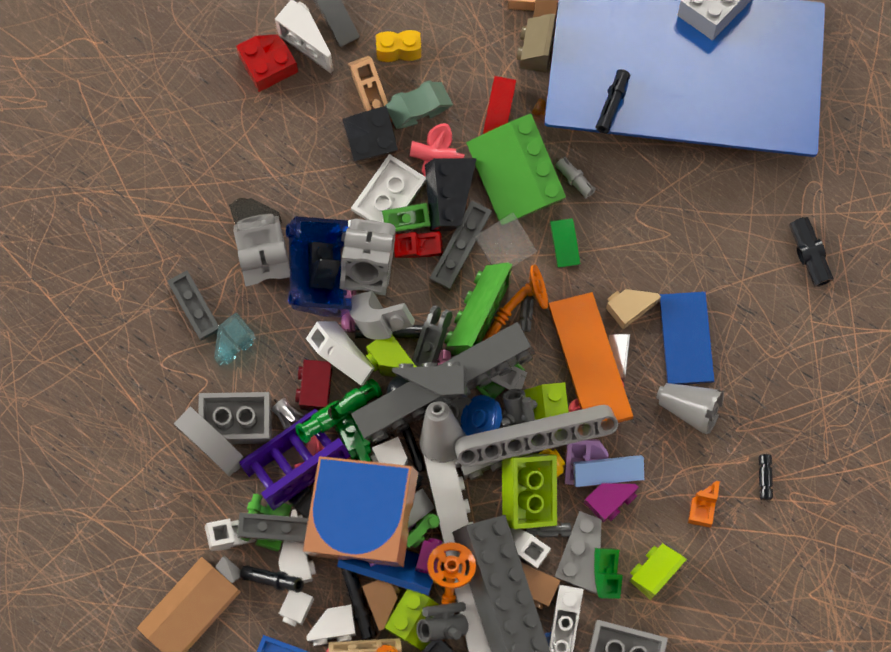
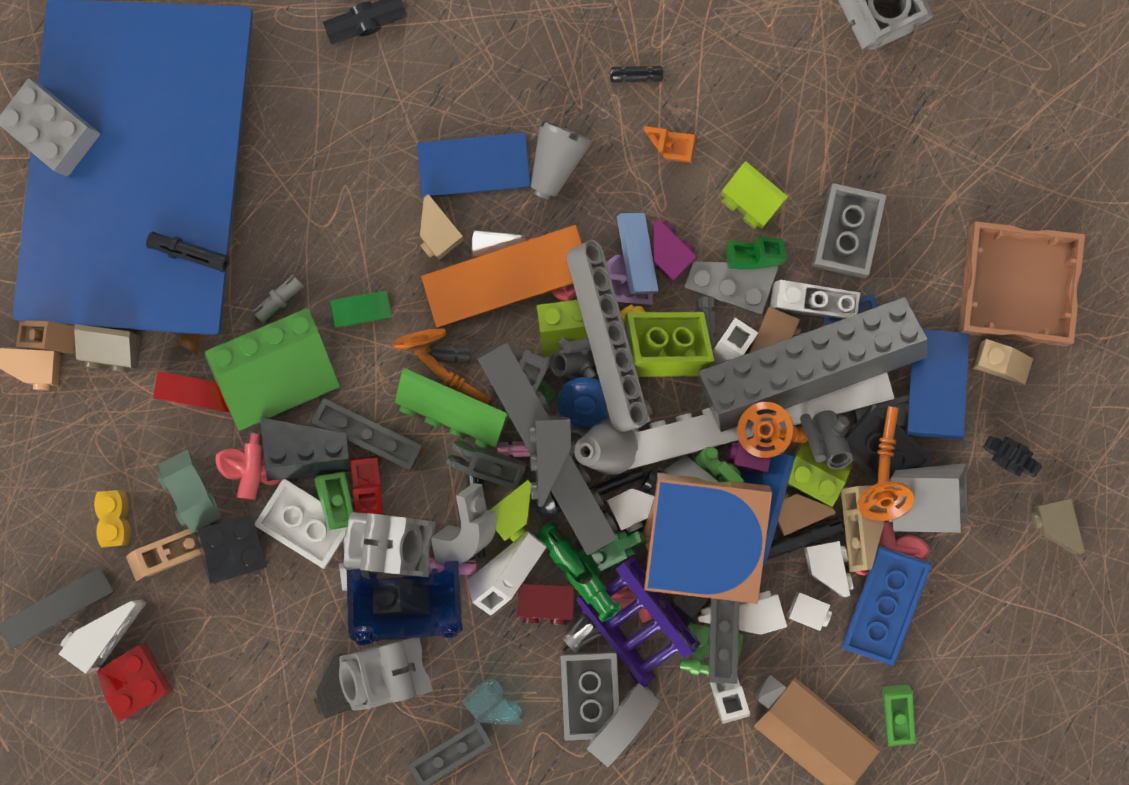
camera: 90 degrees left, 10 degrees up
(279, 580) = (784, 631): black pin -> none
(505, 242) = (364, 380): clear plate -> none

